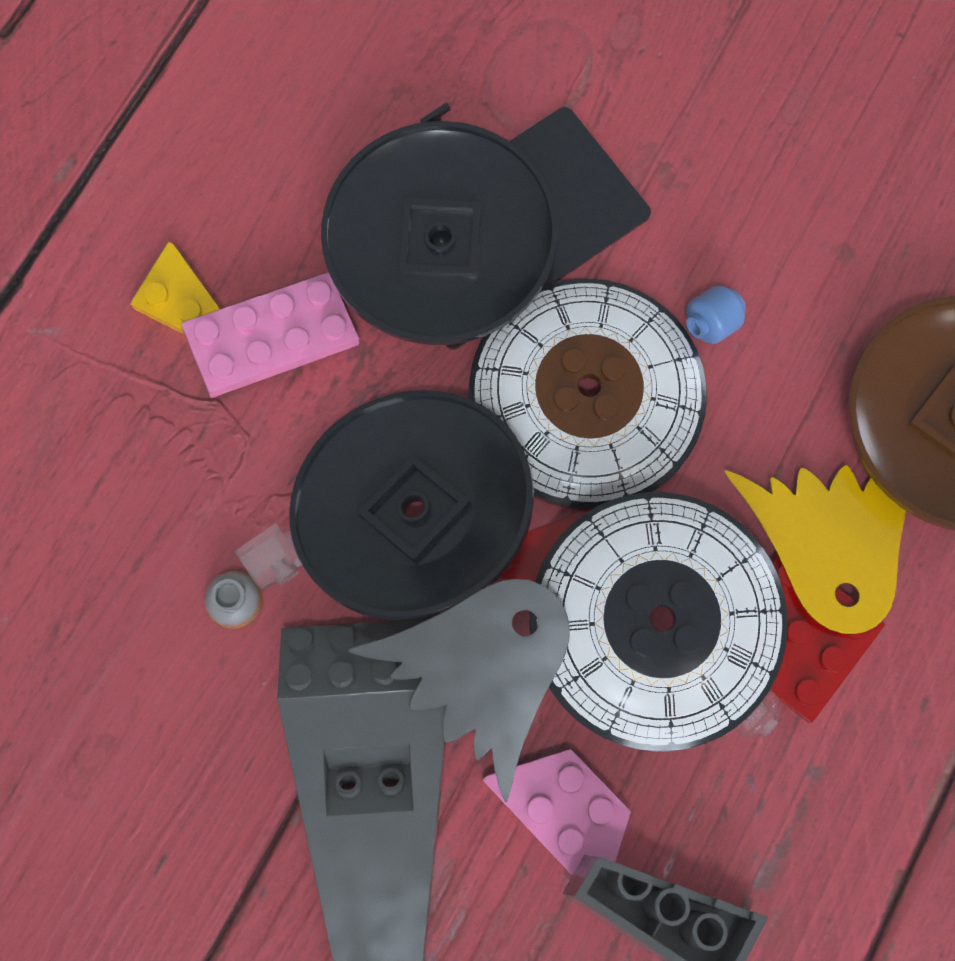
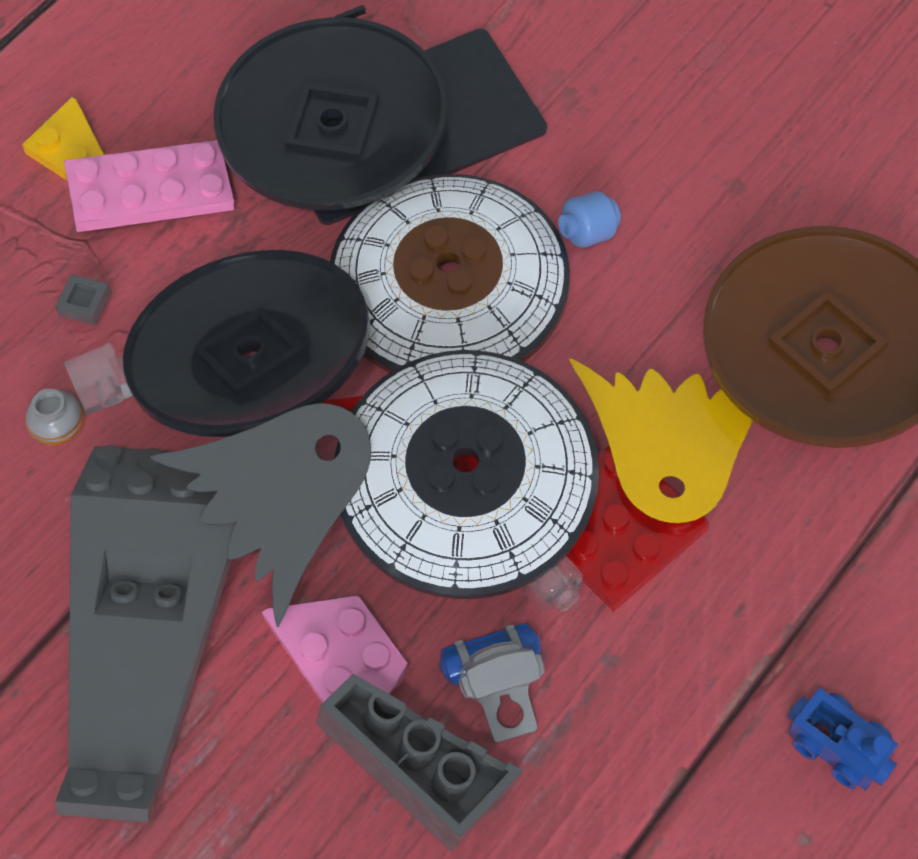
camera: 10 degrees right, 15 degrees down
(233, 470) = (83, 299): none -> dark grey plate
(722, 813) = (497, 667): none -> light grey piece

